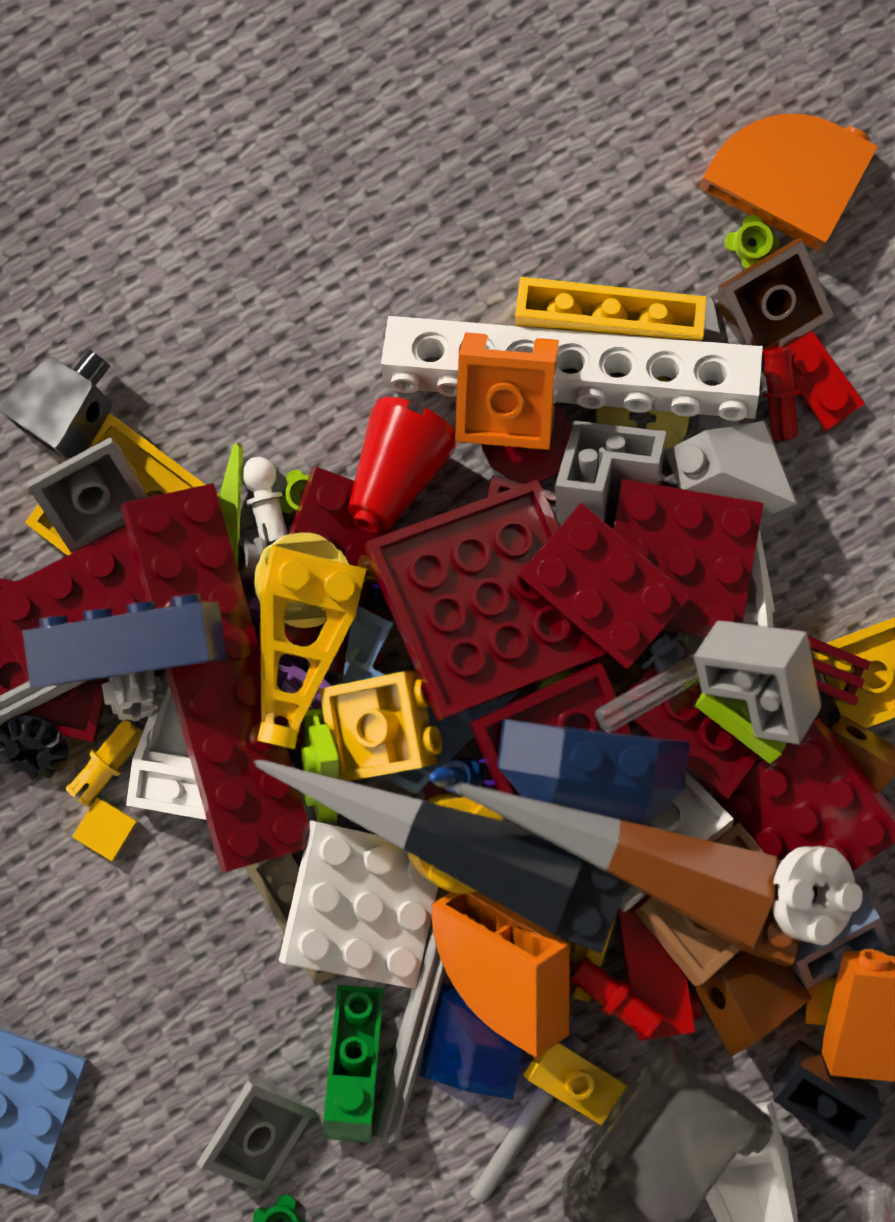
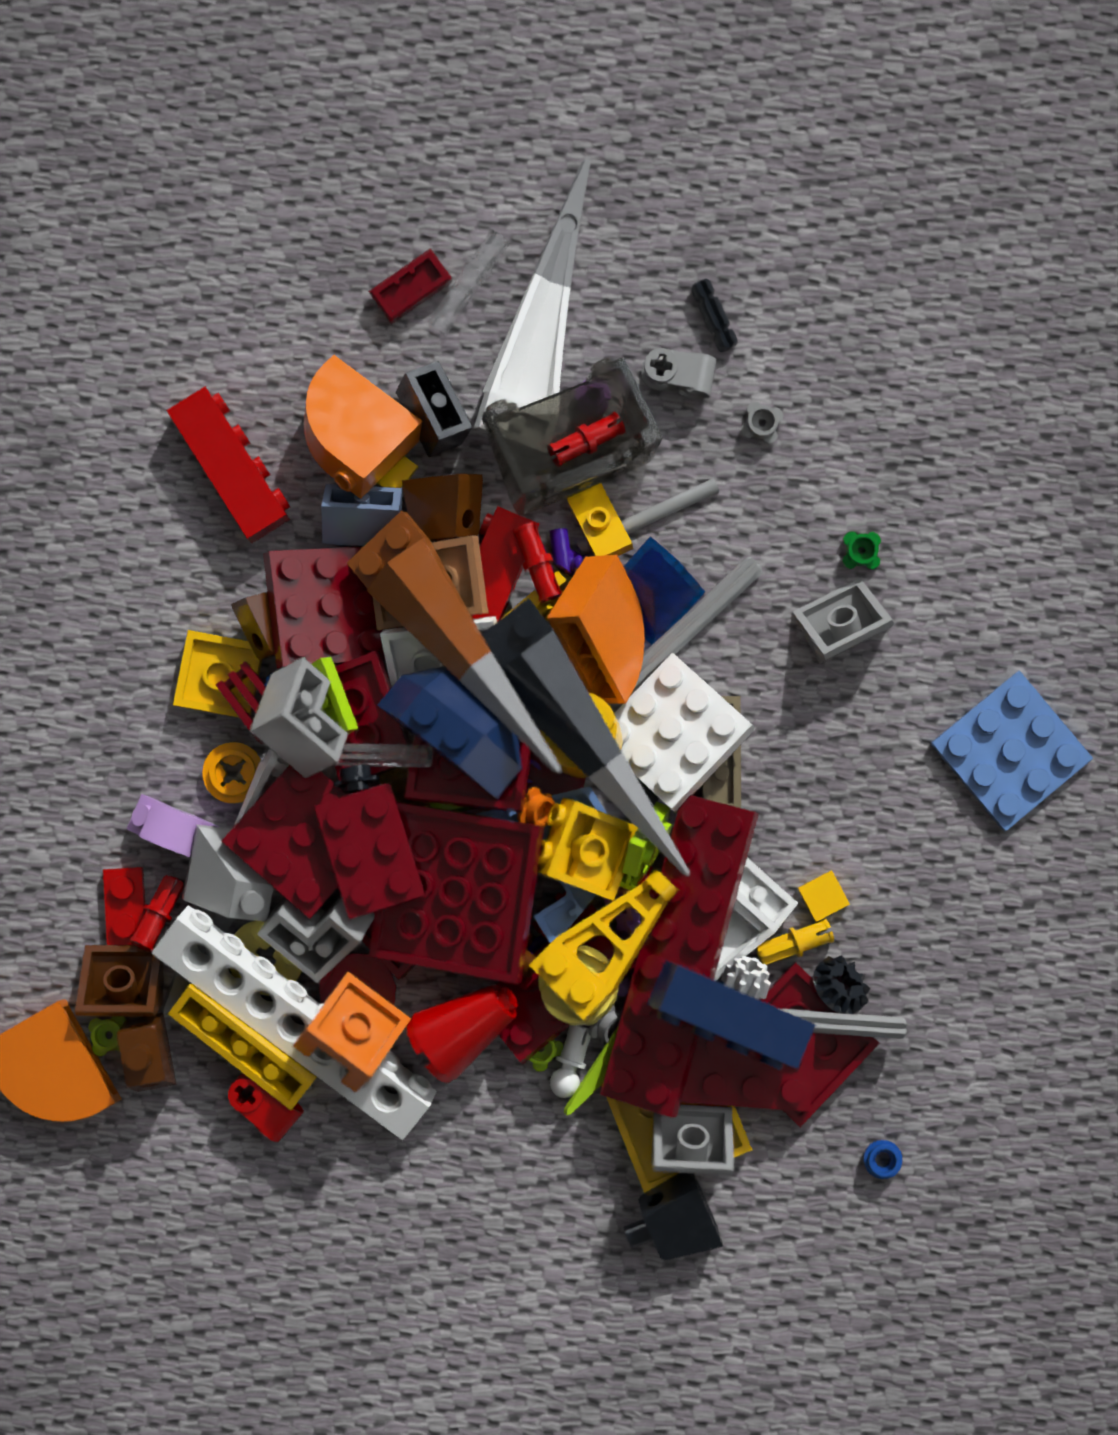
camera: 155 degrees left, 0 degrees up
(353, 1064) = (746, 627): green slope -> none
(457, 736) = (536, 807): none -> orange plate
(458, 772) = (551, 781): blue bar -> none
(549, 260) = (263, 1109): none -> red piece
(592, 1021) = (562, 554): none -> dark purple arm
(644, 1163) = (586, 439): none -> red pin
(703, 245) = (146, 1053): none -> reddish brown torso
(811, 570) = (215, 774): none -> light orange gear
(829, 486) = (165, 825): none -> lavender brick
(836, 896) = (341, 539): white plate -> none

